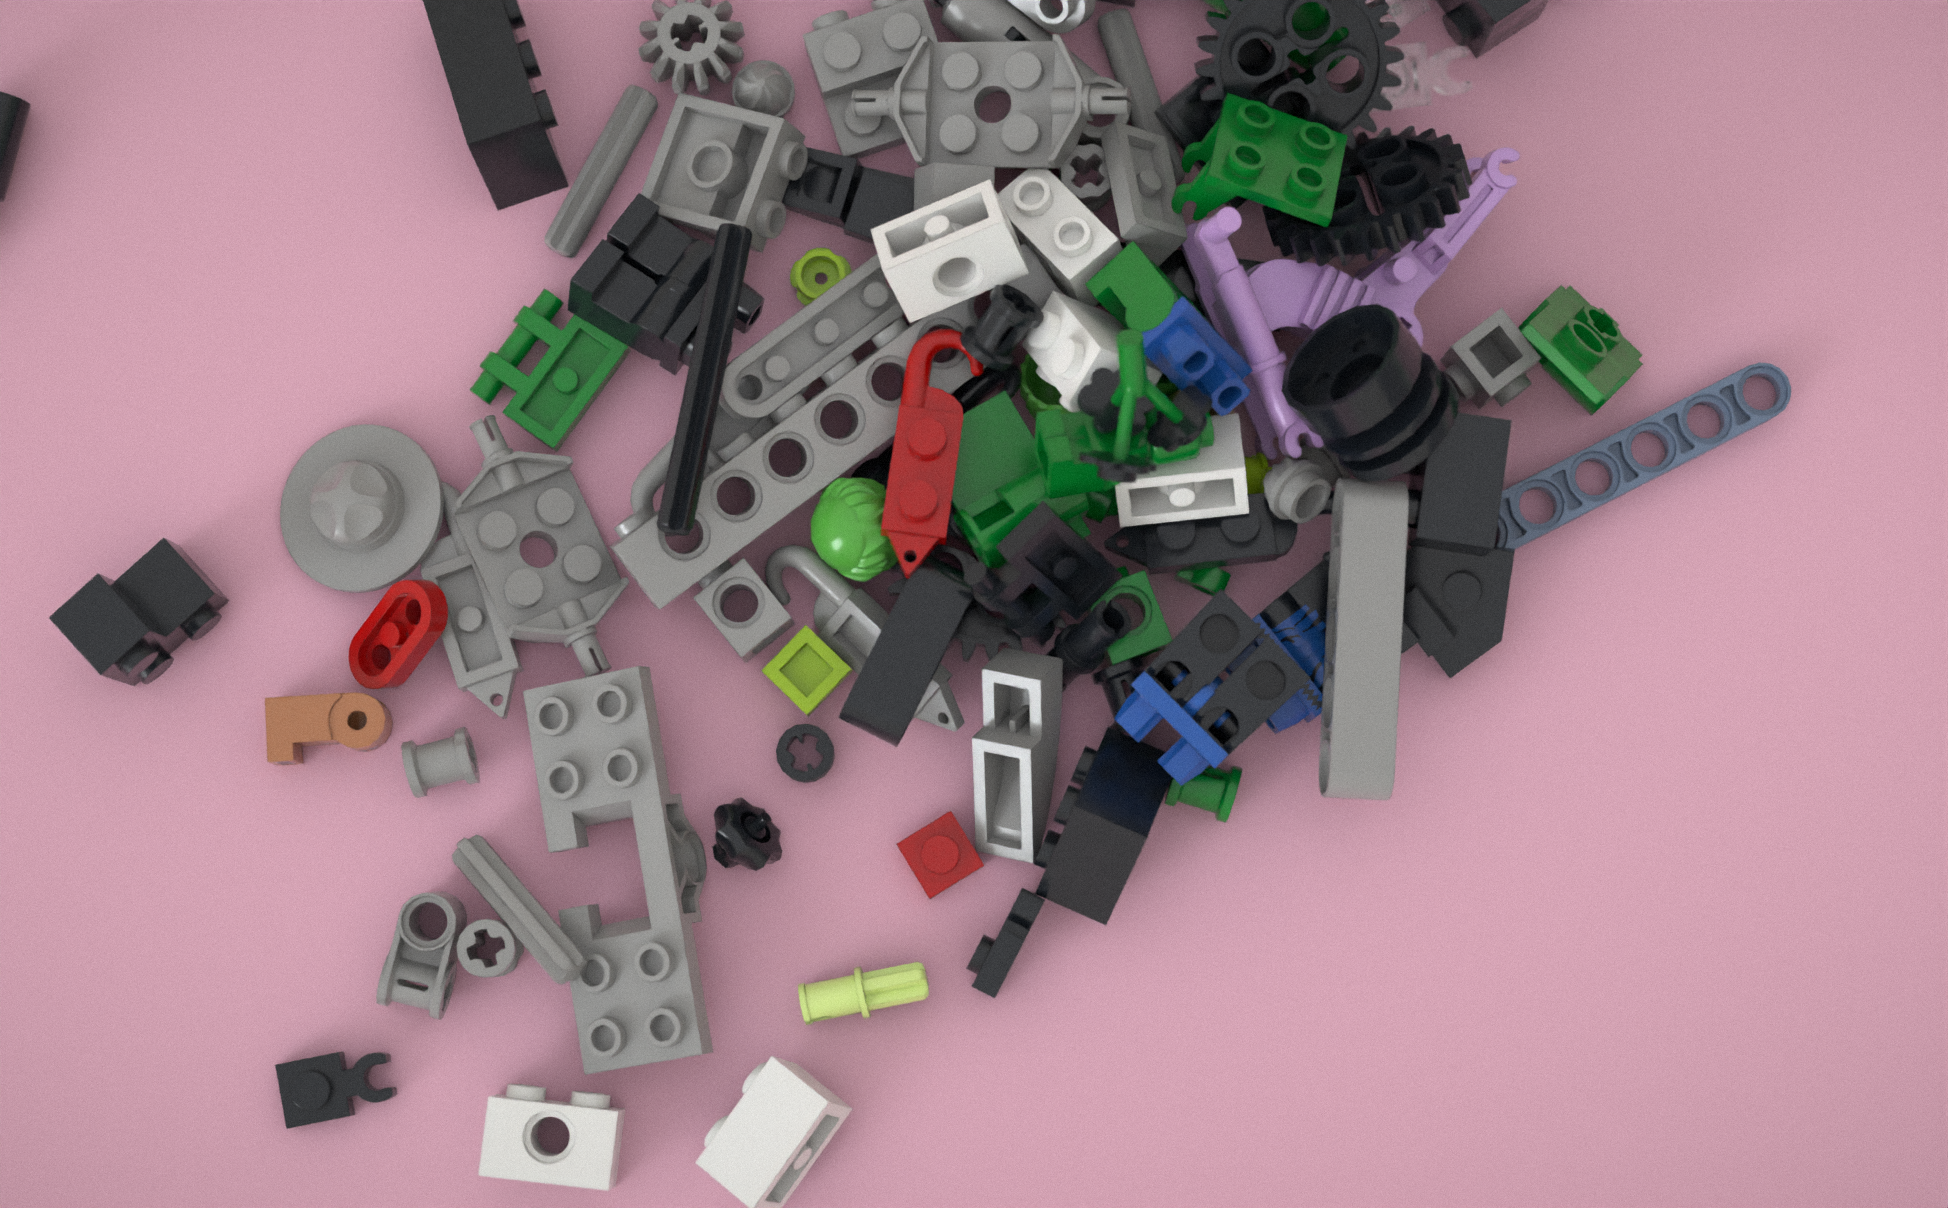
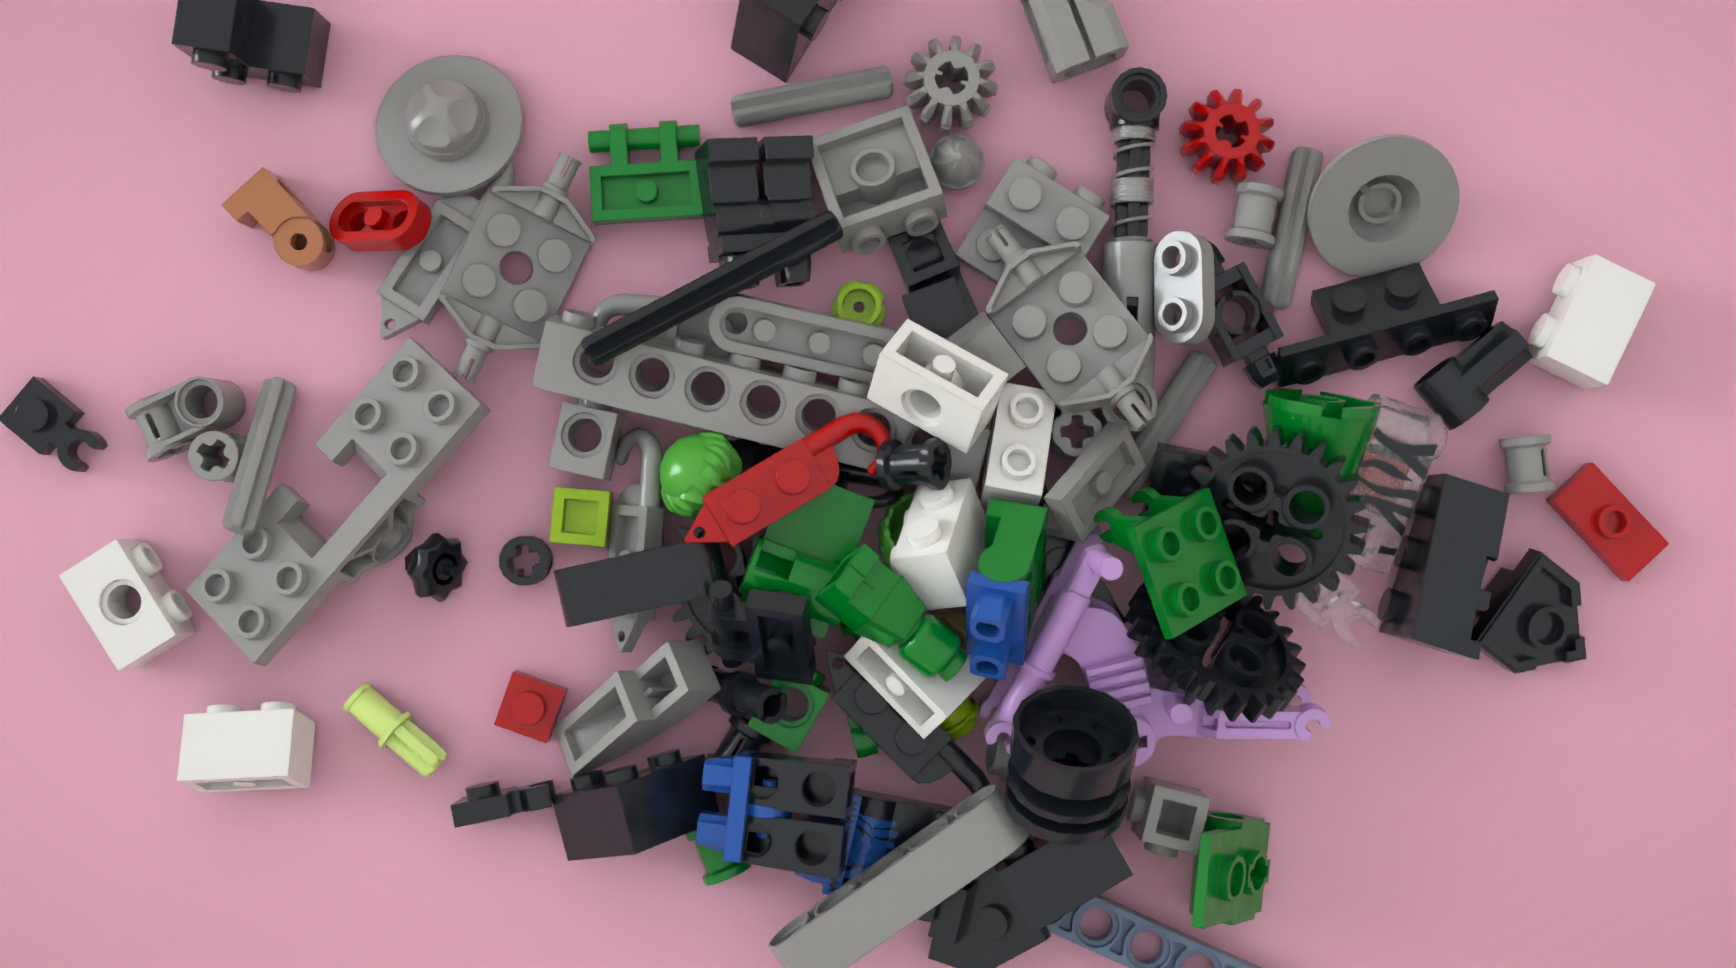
camera: 50 degrees right, 5 degrees up
(440, 762) = (320, 320): light grey bush -> none
(1121, 404) = (917, 598): black plant -> none
(1296, 490) = (965, 759): light grey plate -> none

